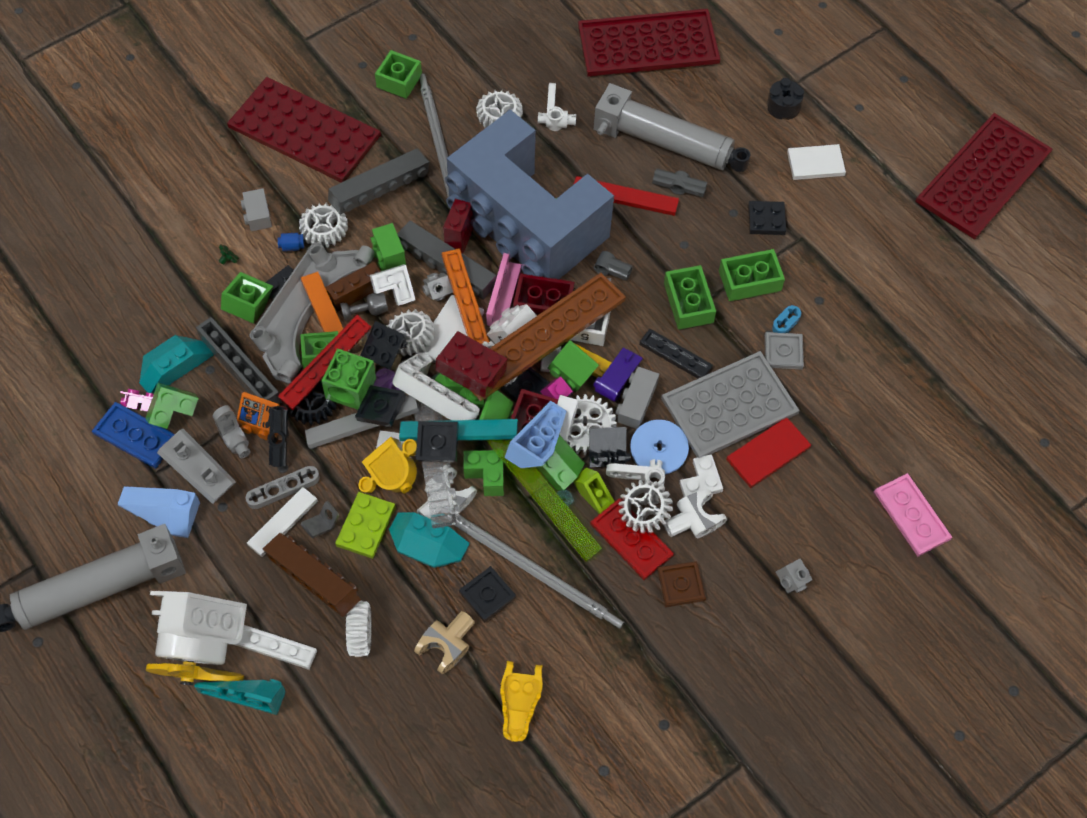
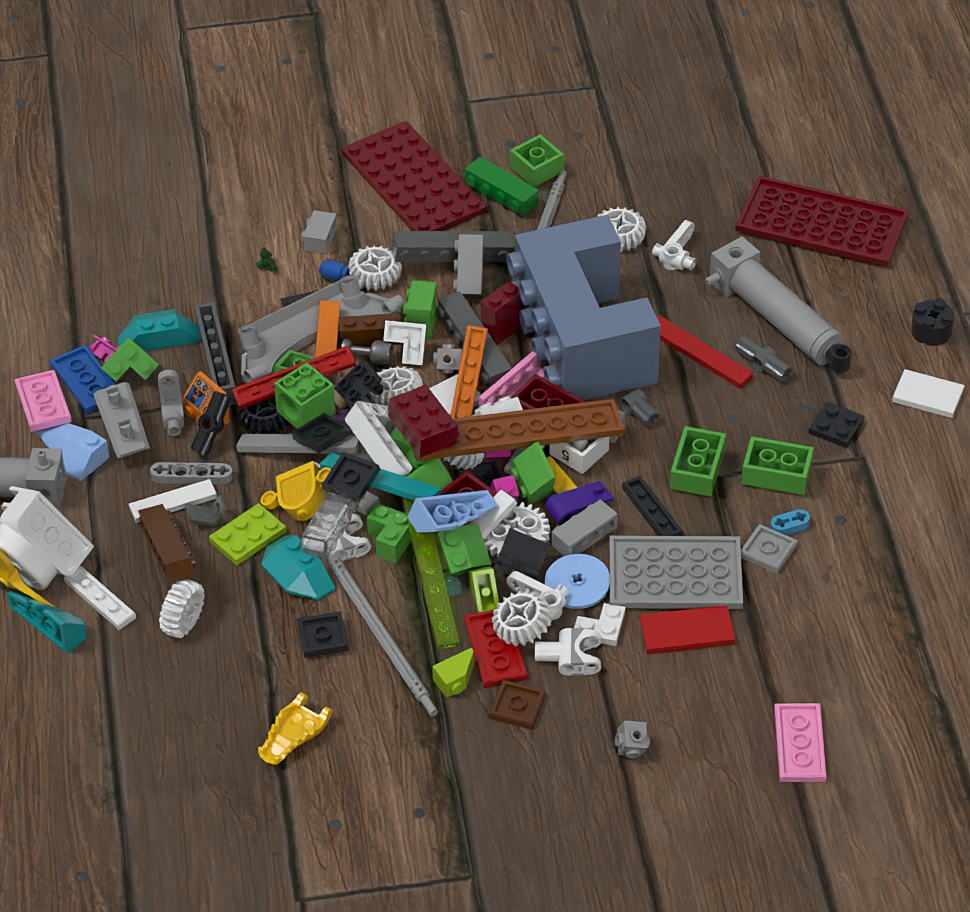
camera: 30 degrees right, 15 degrees down
(110, 474) = (42, 400): none -> bright pink tile
(246, 297) = (258, 299): bright green slope -> none
(383, 108) = (501, 186): none -> green brick
(405, 194) = (469, 265): none -> light grey brick
(448, 640) = (258, 656): tan connector -> none
(617, 581) = (454, 673): none -> lime slope

